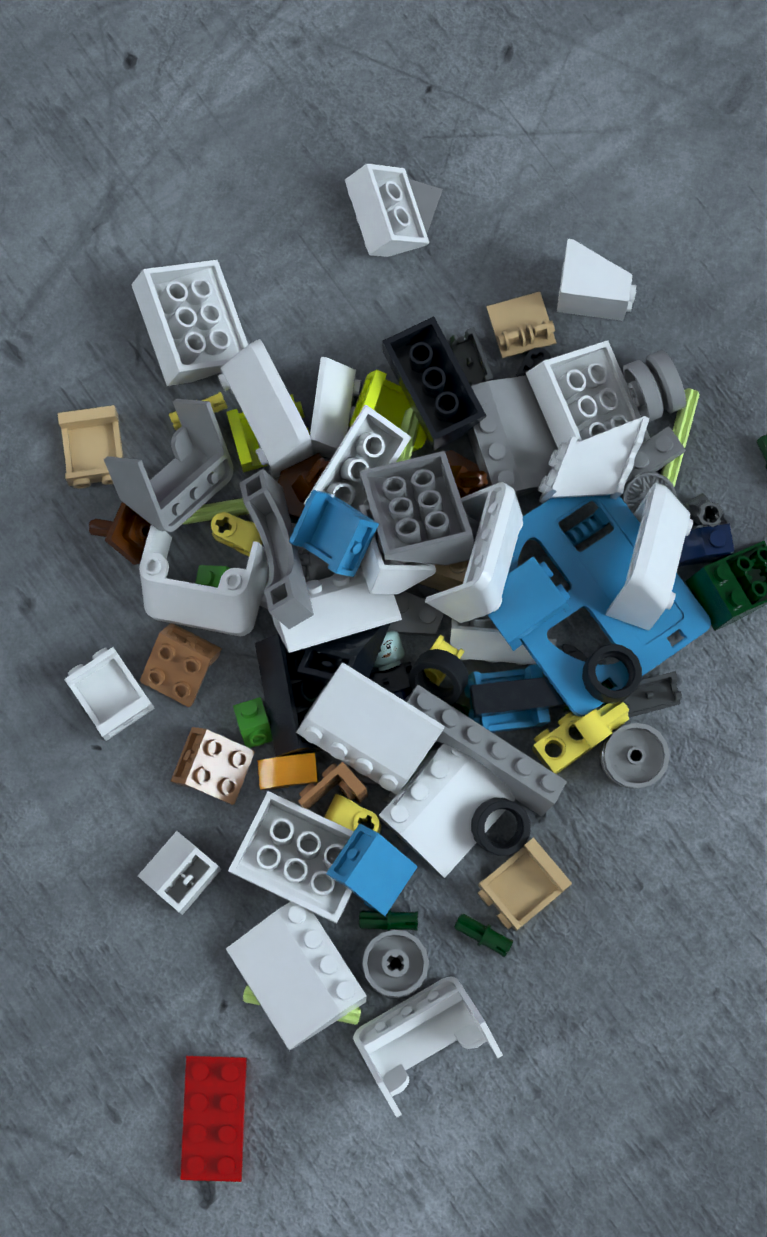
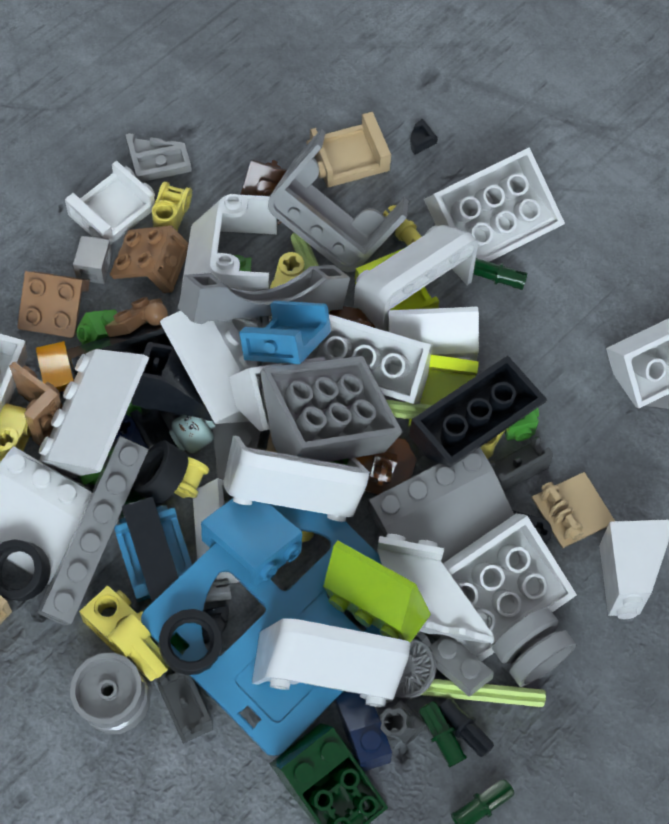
camera: 75 degrees right, 15 degrees down
(60, 640) = (157, 158): none -> light grey wing
(86, 374) = (422, 137): none -> black tile
(120, 632) = (171, 205): none -> light yellow piece
(172, 719) = (92, 259): none -> light grey brick
(251, 681) = (141, 312): none -> medium nougat plate
(269, 326) = (500, 274): none -> dark green axle
(603, 506) = (374, 594): none -> lime slope
(708, 461) = (466, 727): none -> black axle
(712, 481) = (442, 733): none -> dark green axle

